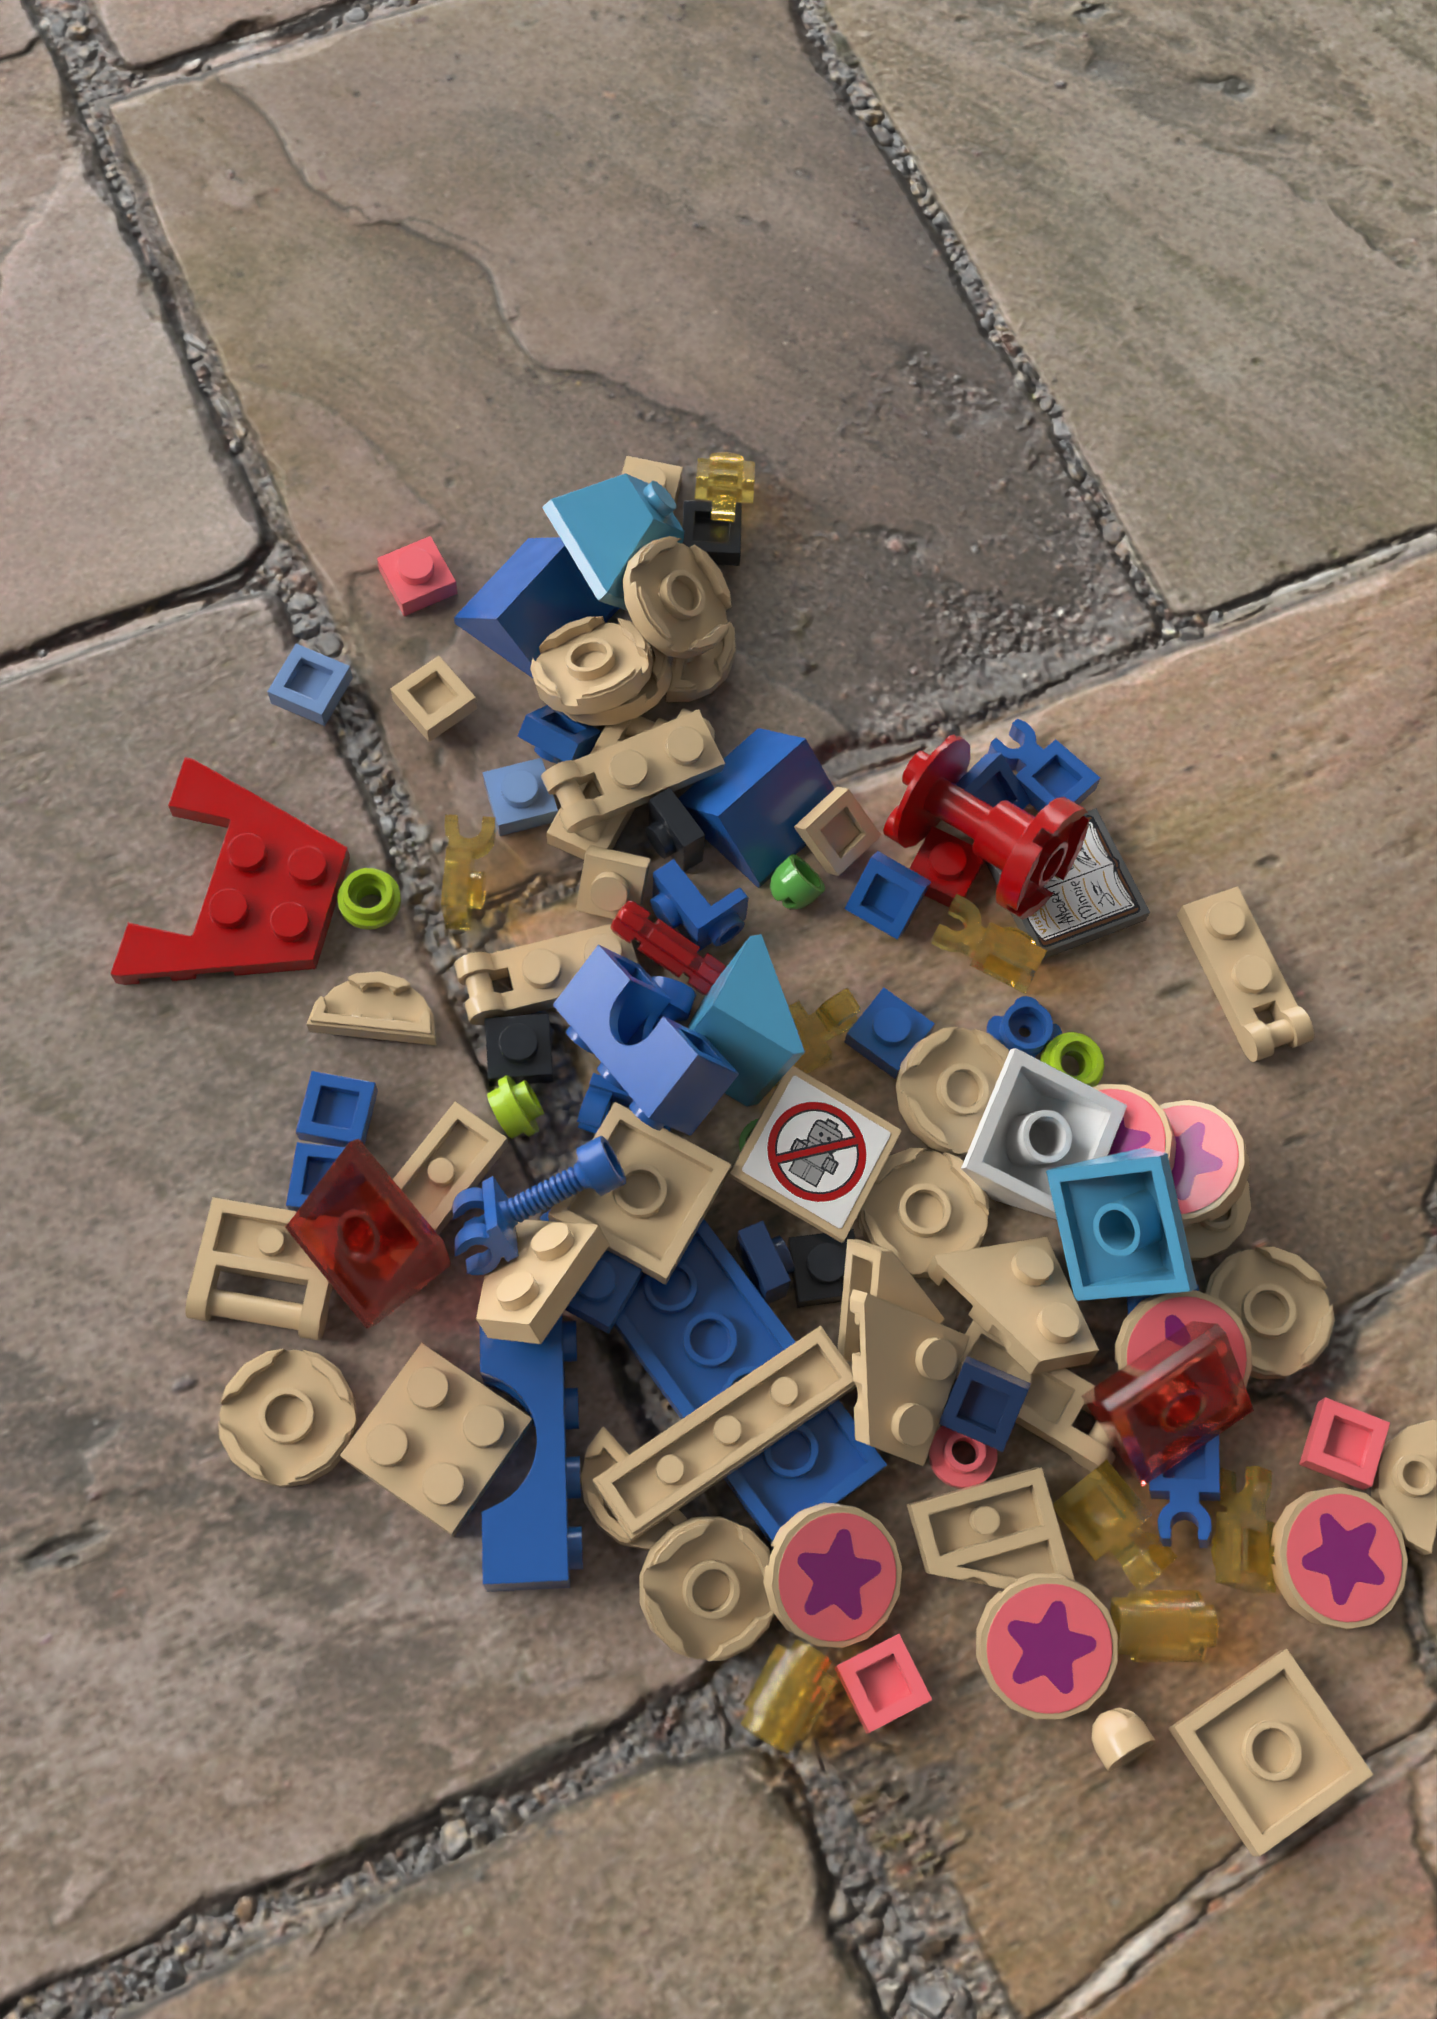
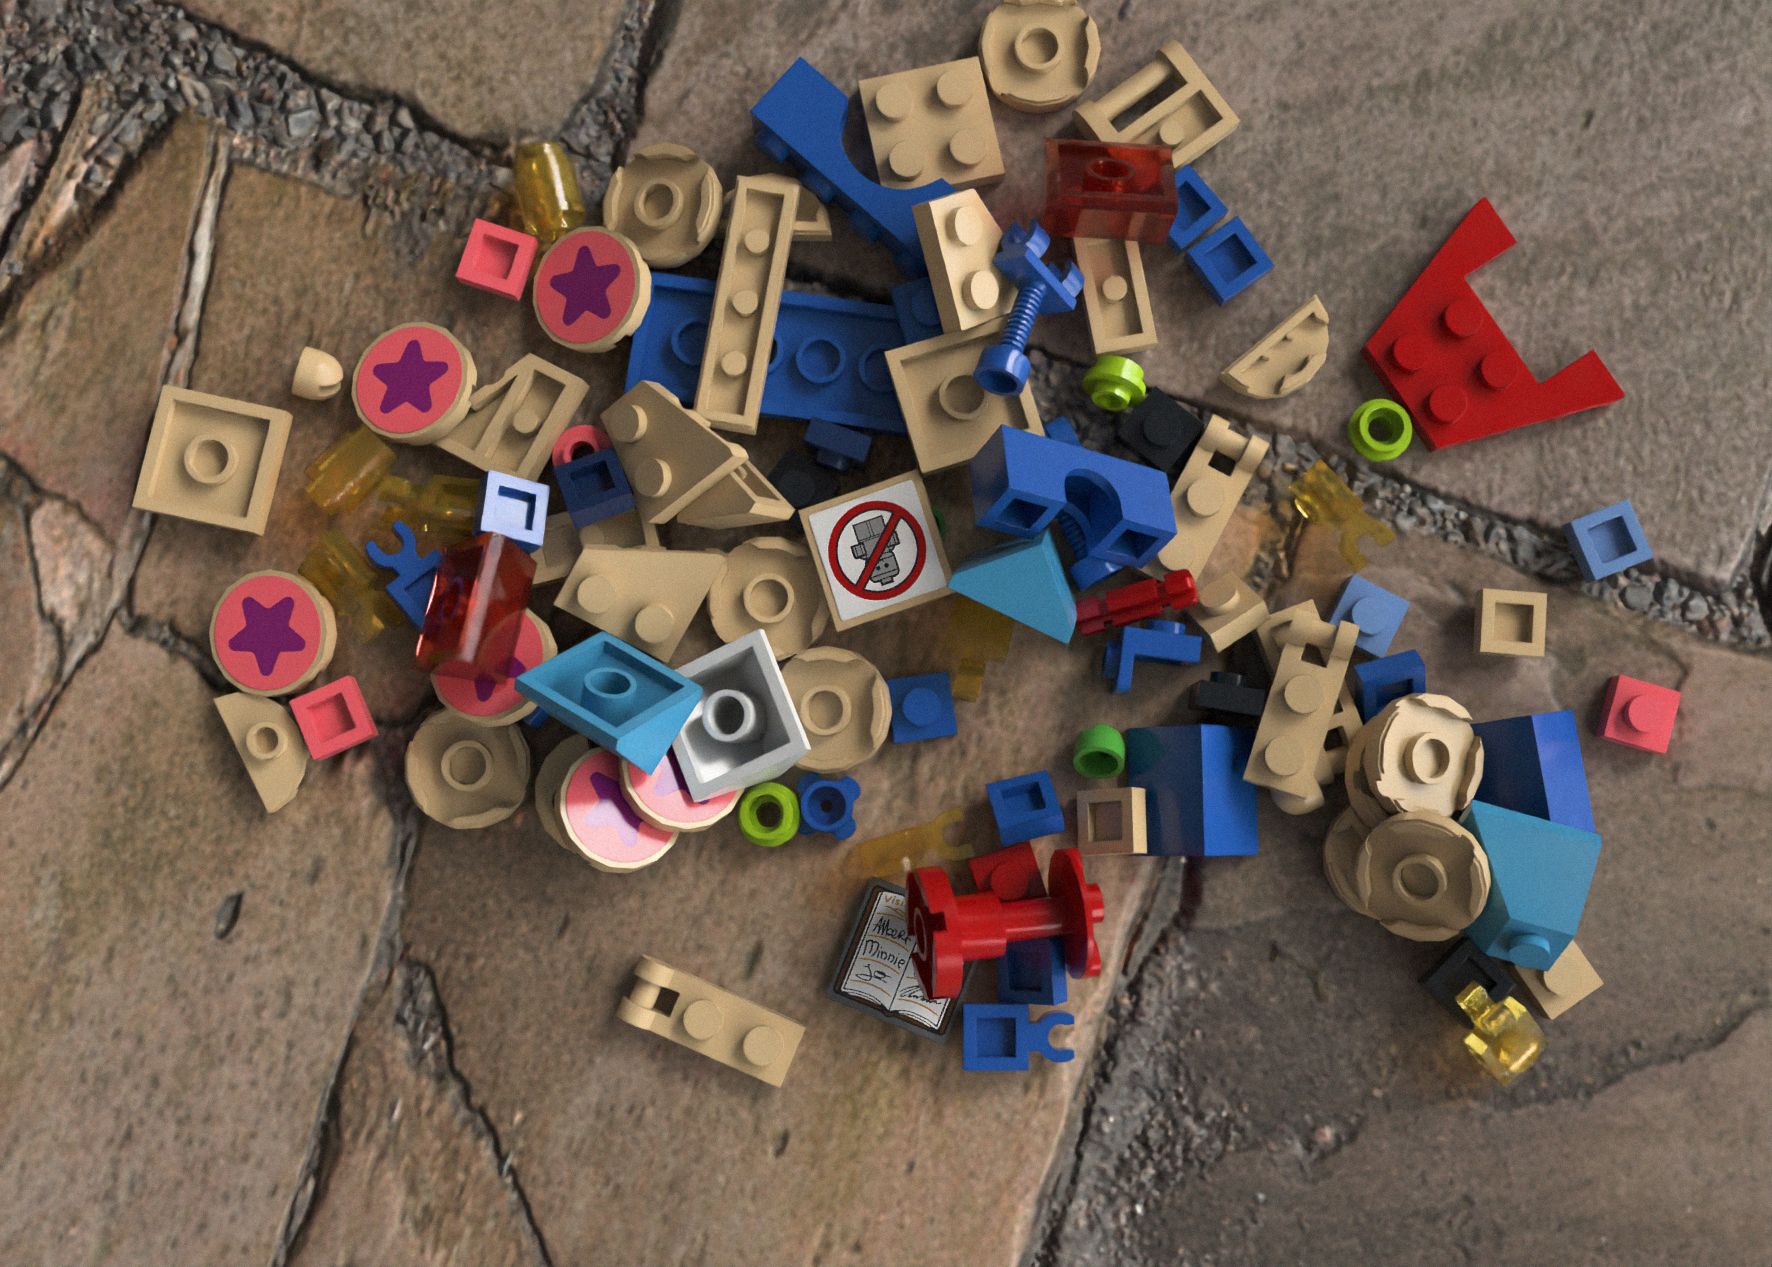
camera: 140 degrees right, 15 degrees up
(1069, 1446) = (512, 508): none -> plate

